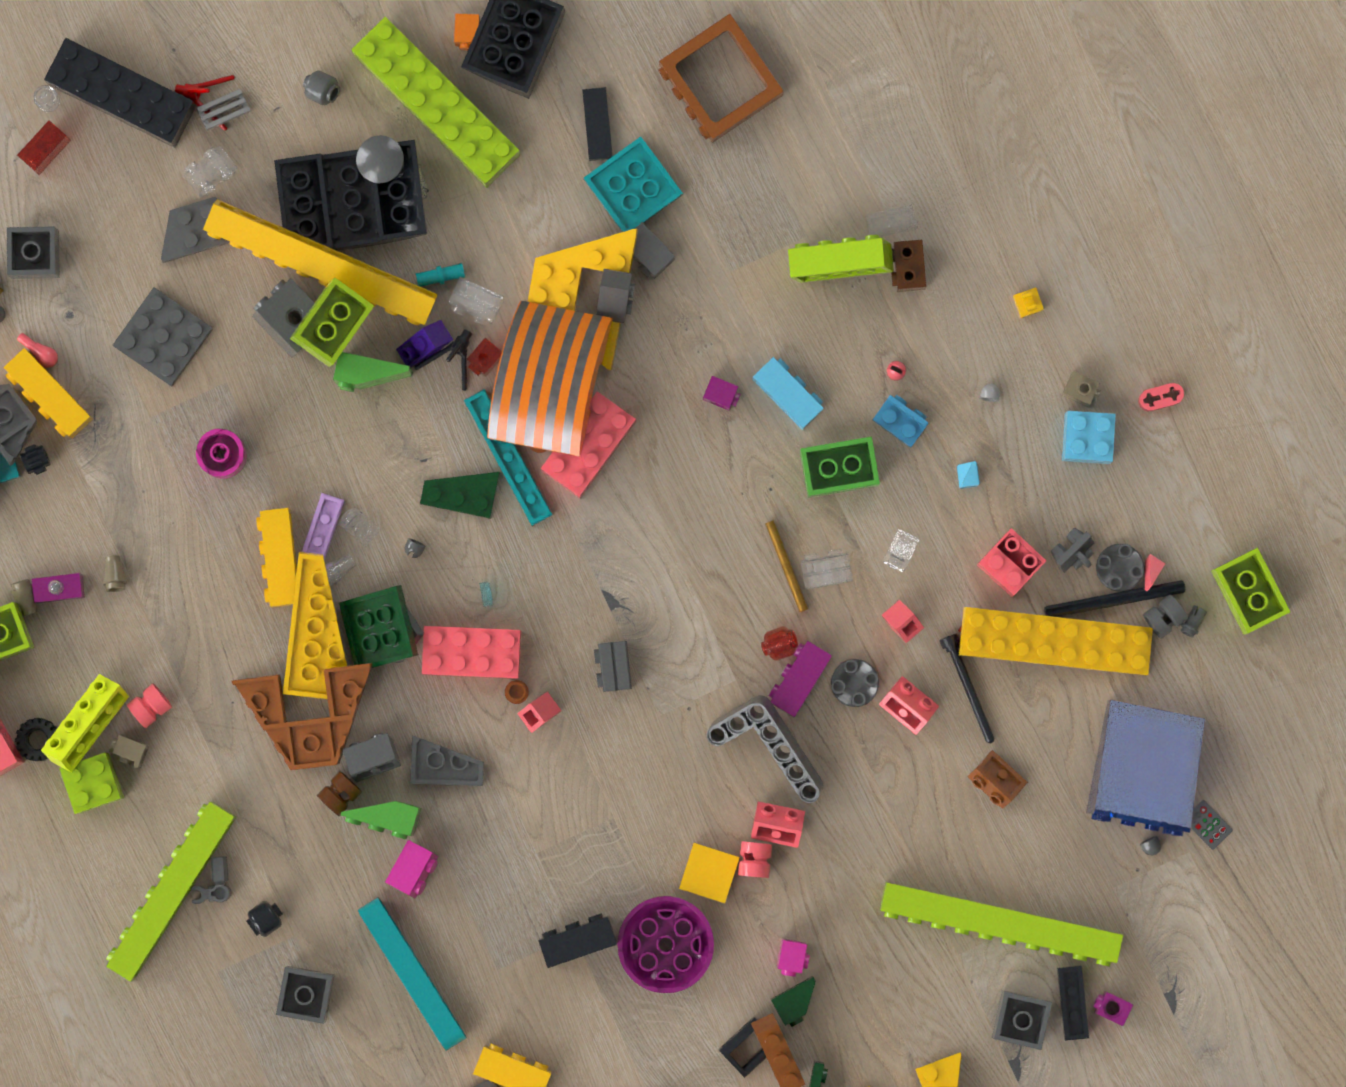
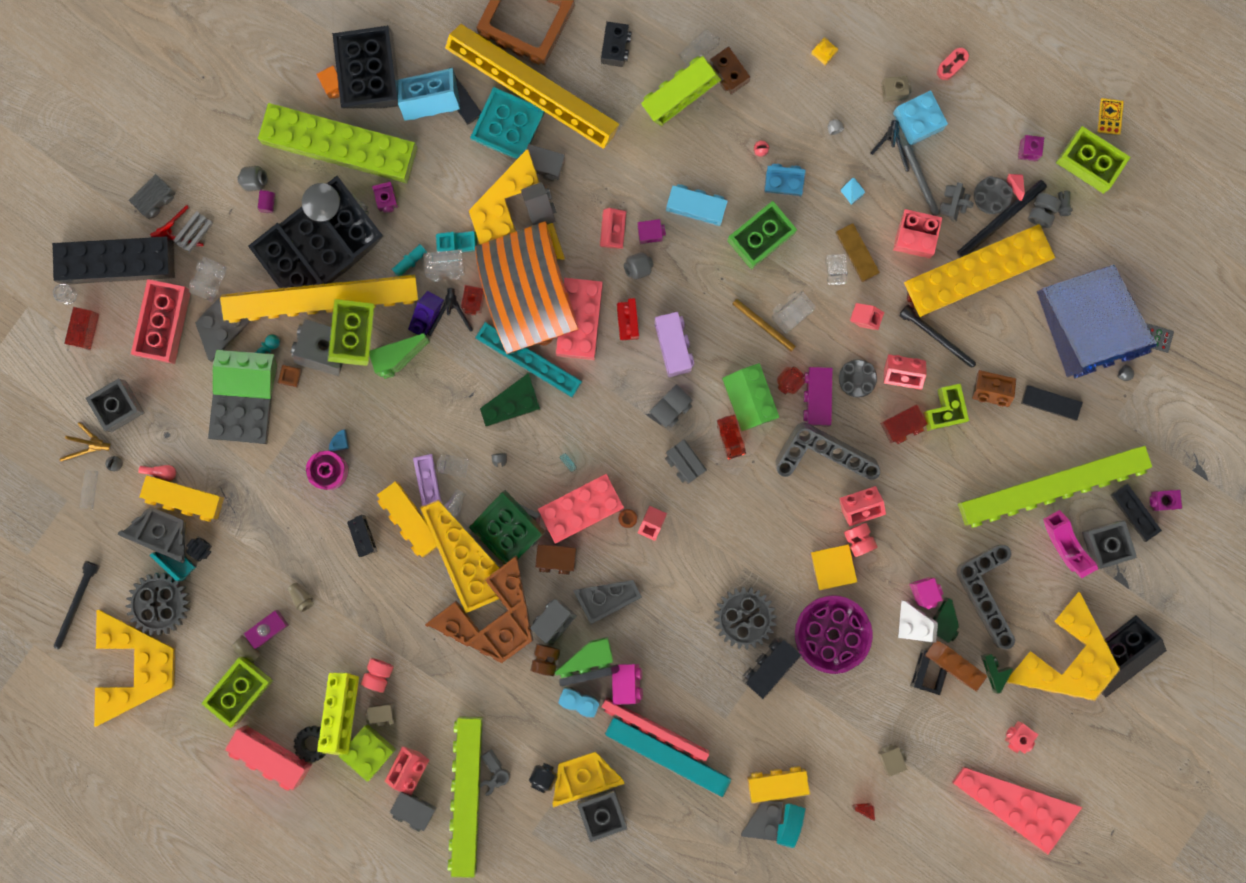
camera: 25 degrees left, 0 degrees up
(105, 873) = (413, 811): none -> dark grey brick
(124, 827) = (406, 772): none -> coral brick
(133, 189) = (161, 321): none -> coral brick
(190, 298) = (244, 374): none -> bright green slope
(201, 46) = (152, 197): none -> dark grey brick
(218, 546) = (362, 536): none -> black bracket
(239, 327) = (289, 376): none -> dark orange tile
(240, 279) = (271, 342): none -> teal bar
(252, 429) = (339, 441): none -> dark azure tile
(308, 944) = (583, 777): none -> yellow wing
(321, 122) = (266, 201): none -> magenta brick
(353, 865) = (574, 700): none -> medium azure brick
(377, 836) = (593, 674): none -> black tile
(408, 928) = (662, 733): none -> coral plate
(413, 690) = (555, 558): none -> reddish brown brick
(461, 184) = (385, 189): none -> magenta brick
(503, 283) = (456, 241): none -> teal slope
(564, 104) = (428, 94): none -> medium azure slope
(582, 894) = (754, 633): none -> dark grey gear
(633, 597) = (671, 407): none -> dark grey brick
(640, 476) = (627, 320): none -> red bracket
(674, 531) = (674, 344): none -> lavender brick
(678, 668) = (731, 437): none -> clear red brick
(682, 366) = (613, 228): none -> coral slope
(683, 159) = (531, 86): none -> yellow brick
(686, 423) = (638, 266): none -> dark grey head
(725, 637) = (750, 397): none -> bright green slope
(761, 985) = (915, 624): none -> white wing
(801, 164) = (615, 43): none -> black brick
(855, 996) = (985, 595): none -> dark grey beam
(875, 761) = (903, 424): none -> clear red brick
(934, 778) = (952, 409): none -> lime brick
(935, 545) = (857, 252): none -> pearl gold tile
(977, 994) = (1067, 545): none -> dark pink arch
(1049, 439) = (893, 136): none -> black plant
(1051, 831) = (1051, 403): none -> black tile
(1052, 505) = (921, 180): none -> dark grey bar
(1191, 539) = (1031, 148): none -> magenta brick
(1302, 554) = (1110, 116): none -> yellow sticker

